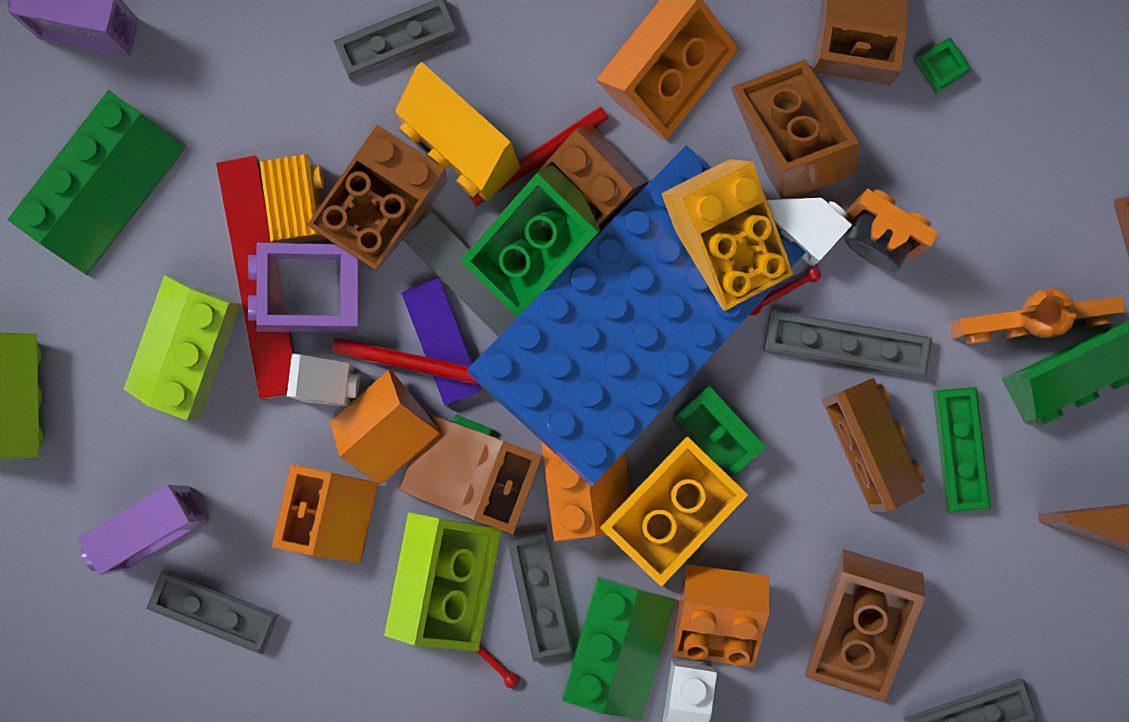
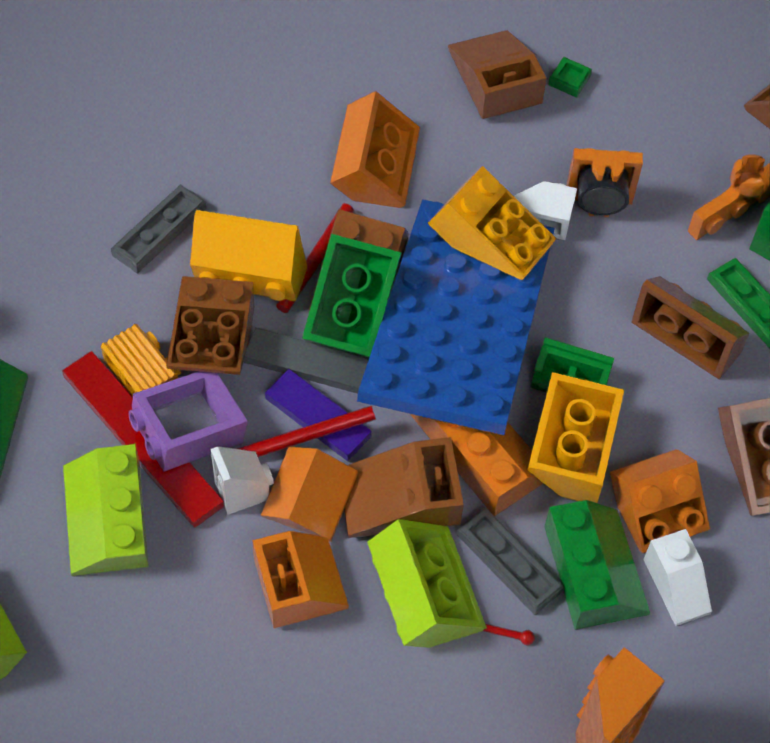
camera: 30 degrees left, 25 degrees down
(142, 530) = (152, 659): medium lavender window -> none
(212, 611) = (243, 711): dark grey tile -> none
(797, 130) = (508, 150): dark orange slope -> none
(812, 275) = (568, 243): red hinge -> none
(847, 344) = (623, 275): dark grey tile -> none

